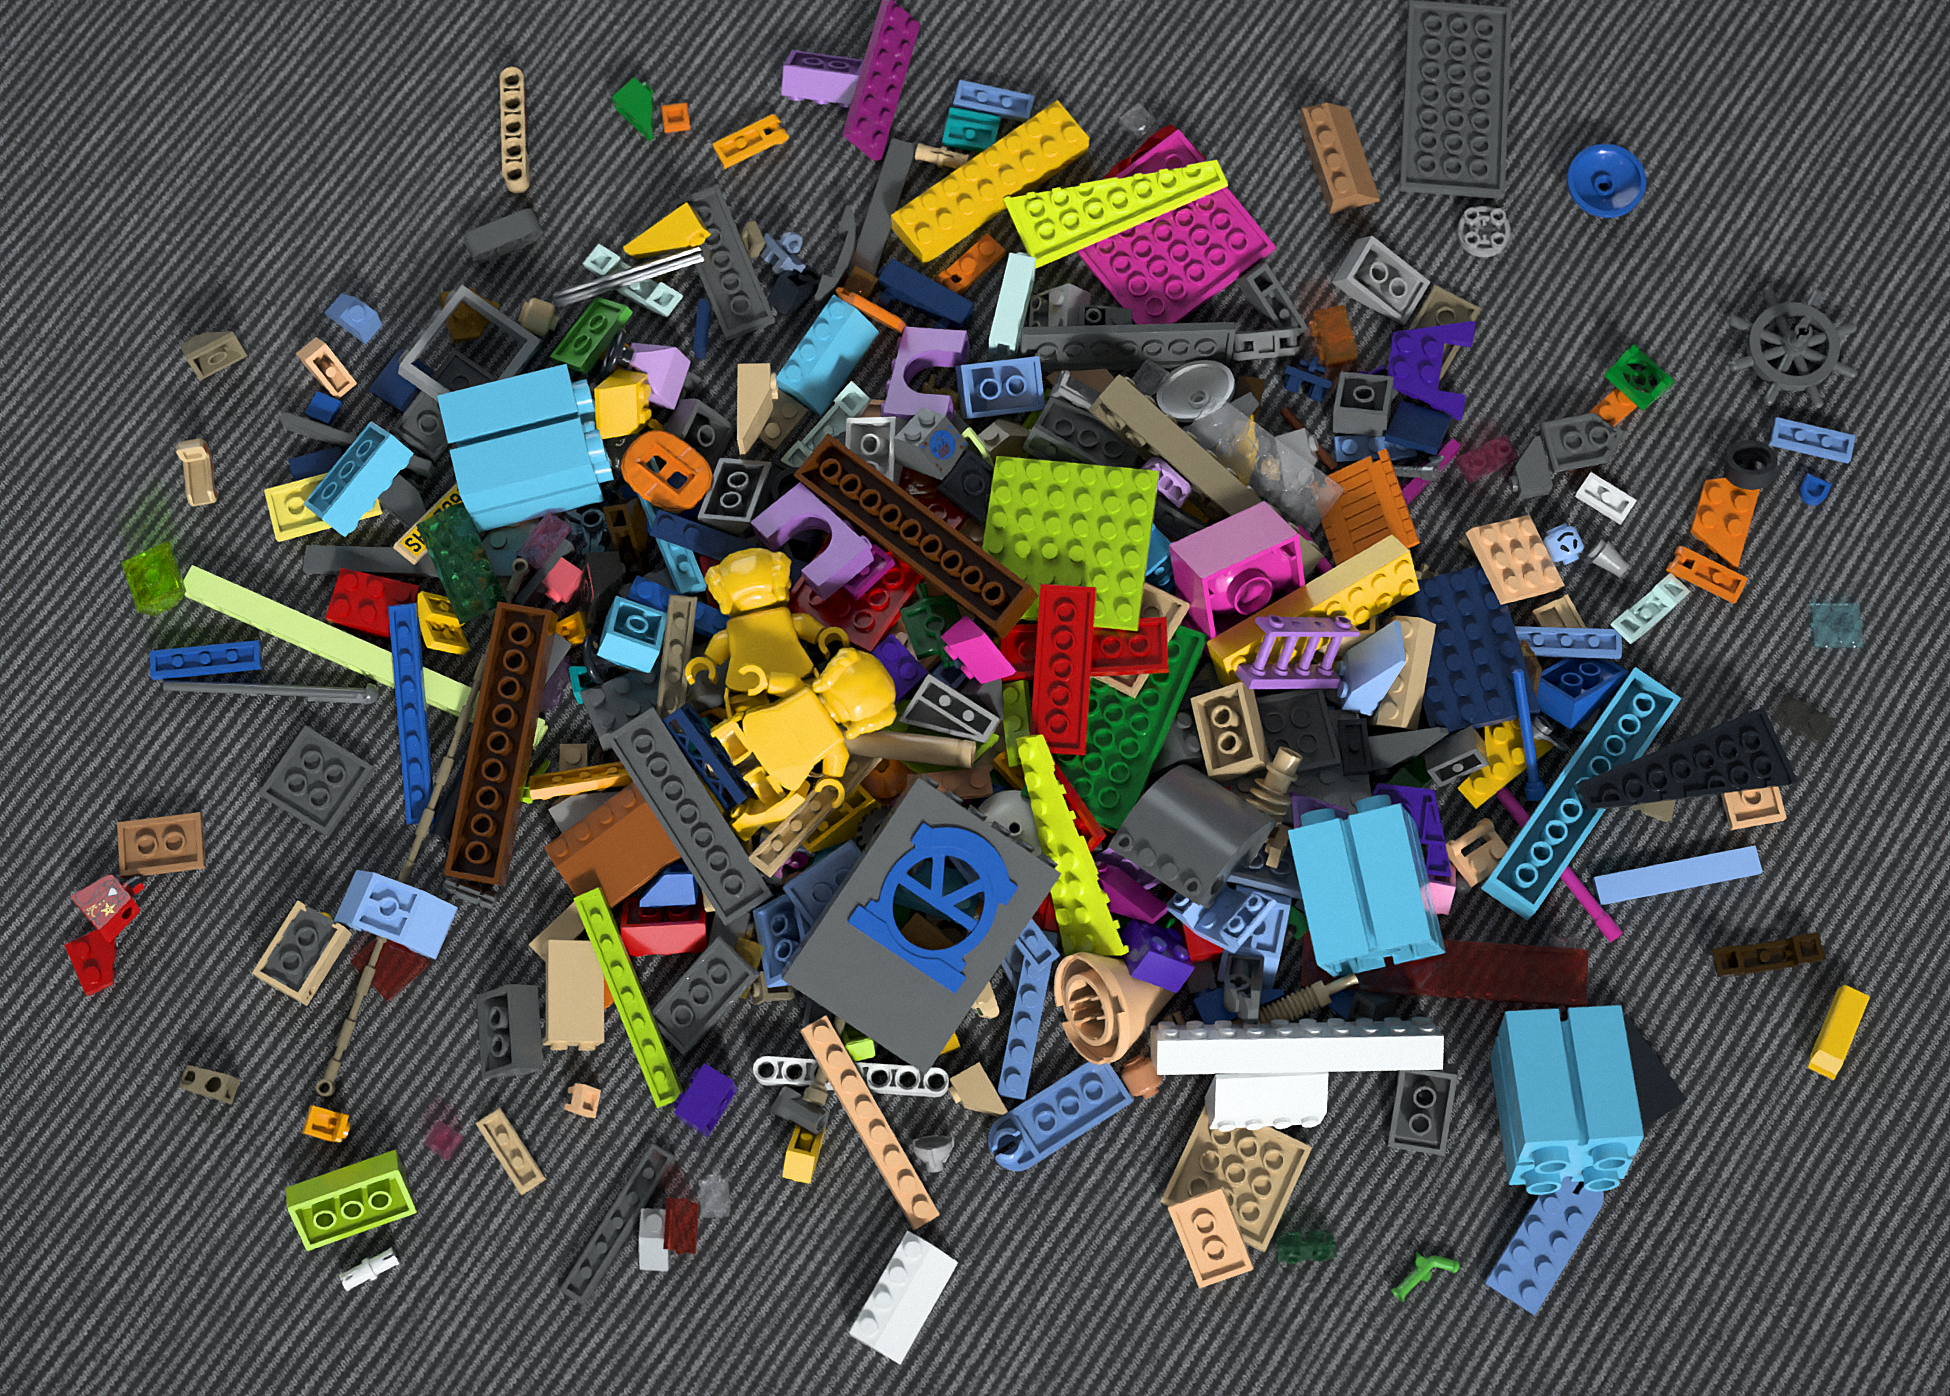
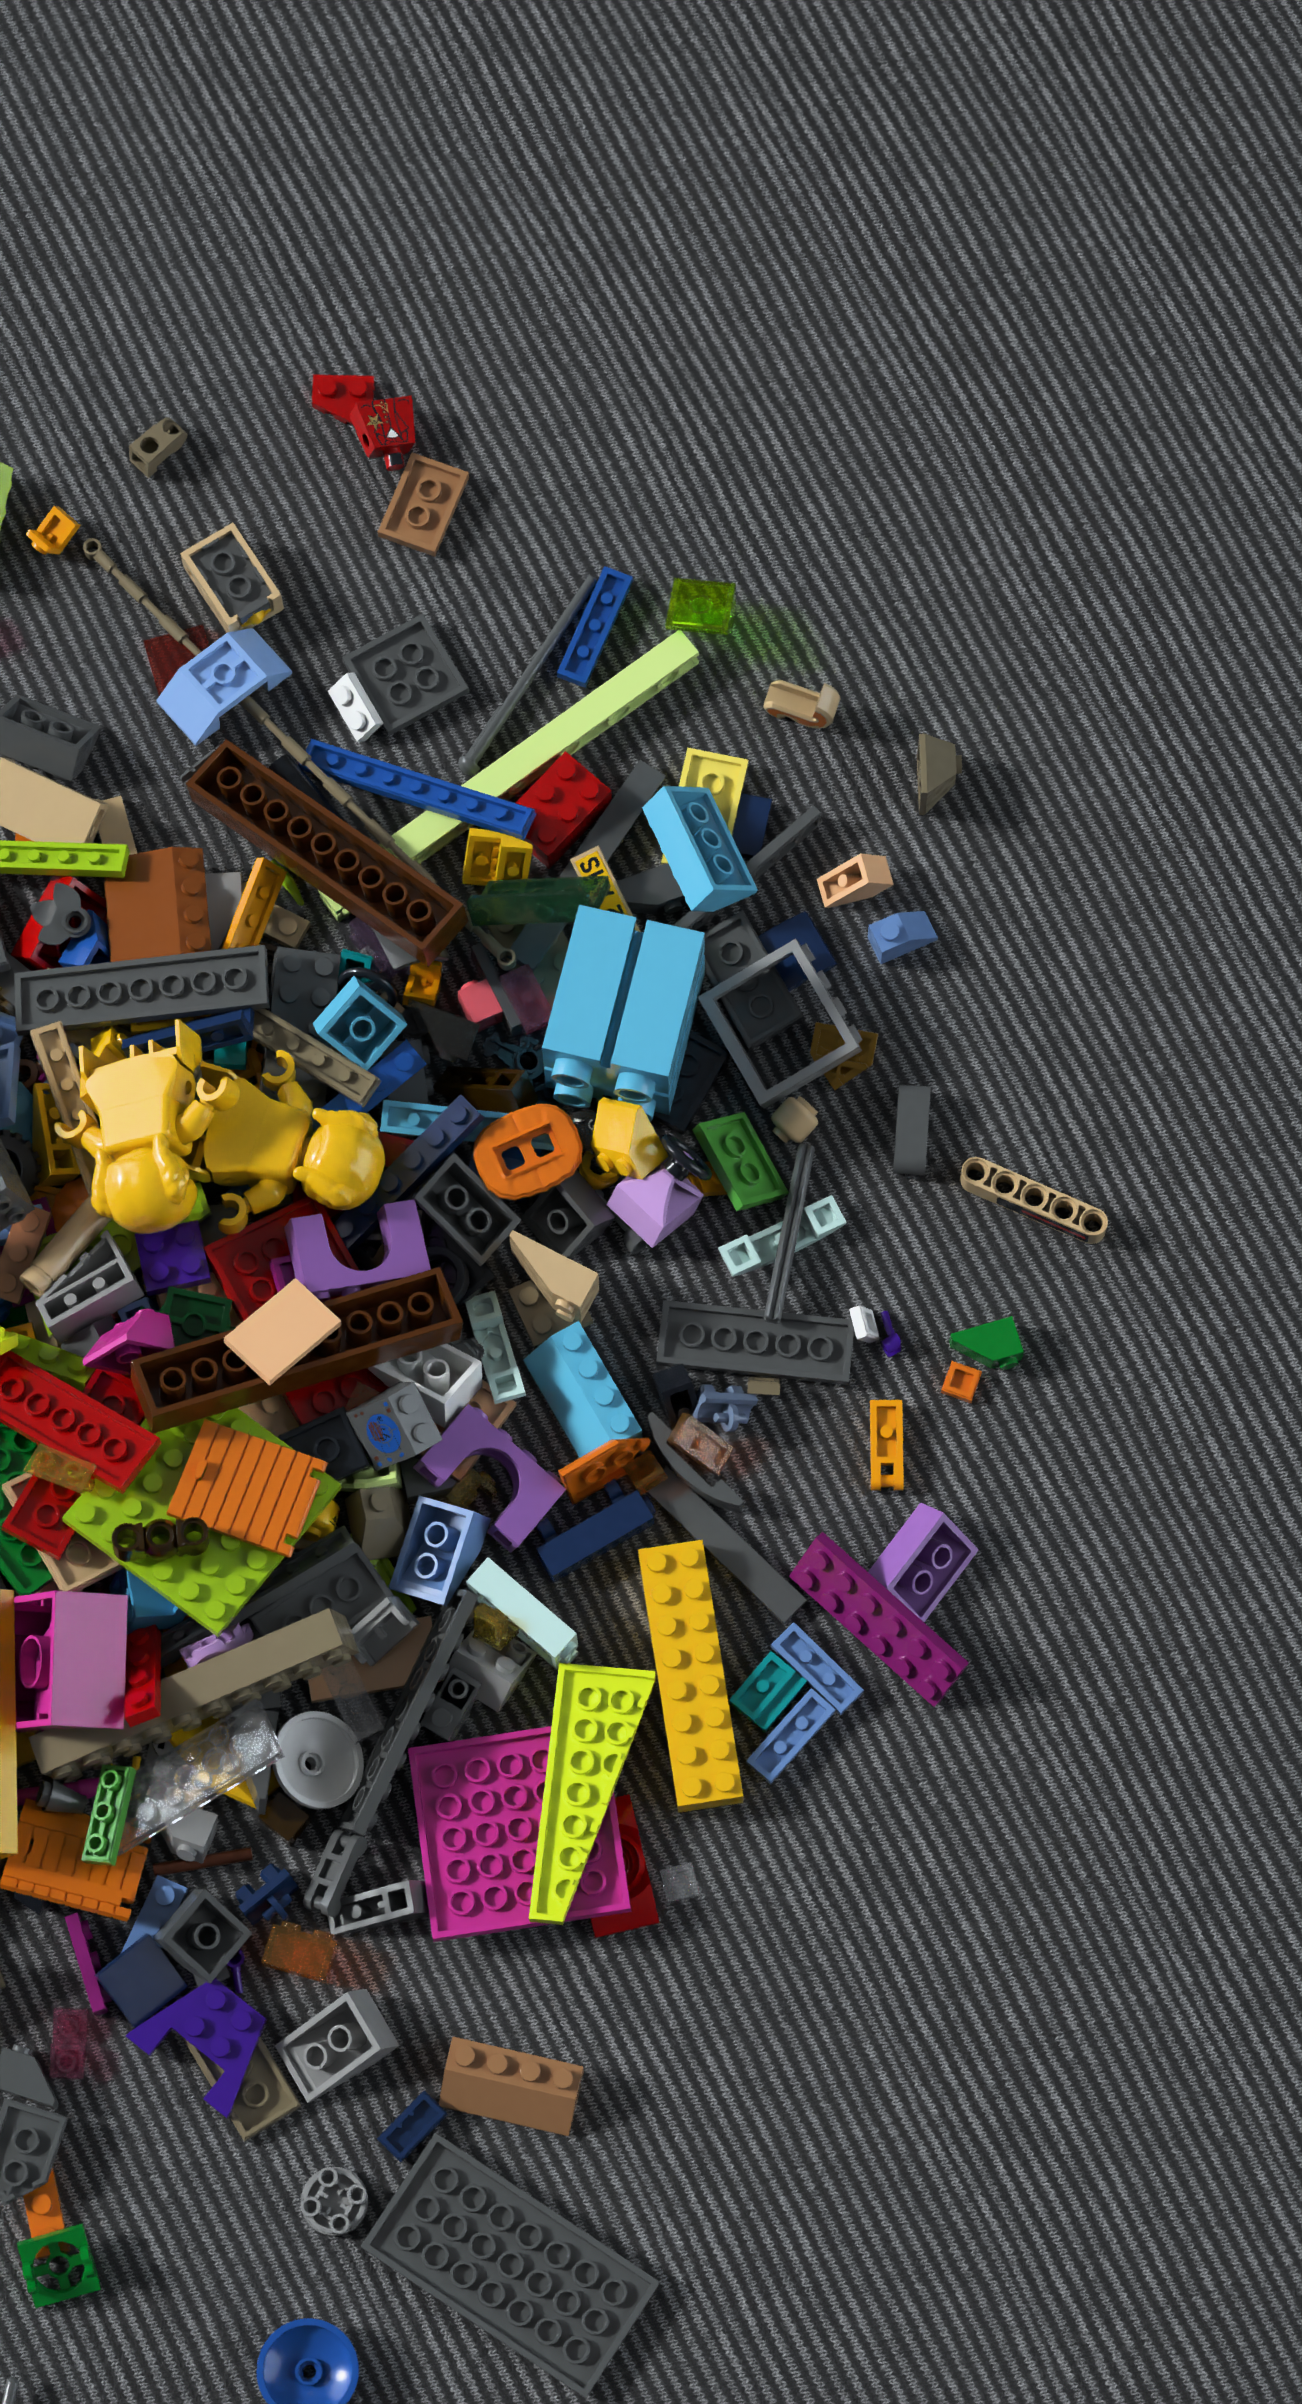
camera: 120 degrees right, 0 degrees up
(323, 408) = (812, 860): blue tile -> none
(363, 803) = (355, 707): none -> white plate
(658, 920) = (57, 913): none -> dark grey plate
(669, 195) = (864, 1324): none -> white tile
(671, 173) = (891, 1344): none -> dark purple hand
(674, 233) = (807, 1302): yellow slope -> none
(702, 329) = (687, 1281): dark blue tile -> none
(819, 256) = (700, 1443): none -> clear orange plate
(910, 540) = (282, 1331): none -> light nougat tile
(936, 108) = (817, 1668): none -> medium blue plate
(941, 157) = (768, 1626): tan pin -> none
(972, 265) = (607, 1607): orange plate -> none
(1035, 313) = (493, 1626): none -> clear yellow bracket
(1040, 512) = (248, 1488): none -> orange door
(1103, 642) = (61, 1469): none -> clear yellow hinge
(1120, 552) = (175, 1533): none -> dark brown piece
(1227, 503) = (143, 1675): none -> red plate
(1332, 553) = (58, 1798): none -> dark grey cone
(1337, 497) = (106, 1830): none -> bright green tile
(1404, 205) = (412, 2126): none -> dark blue plate
(1427, 472) = (77, 1951): piece -> none

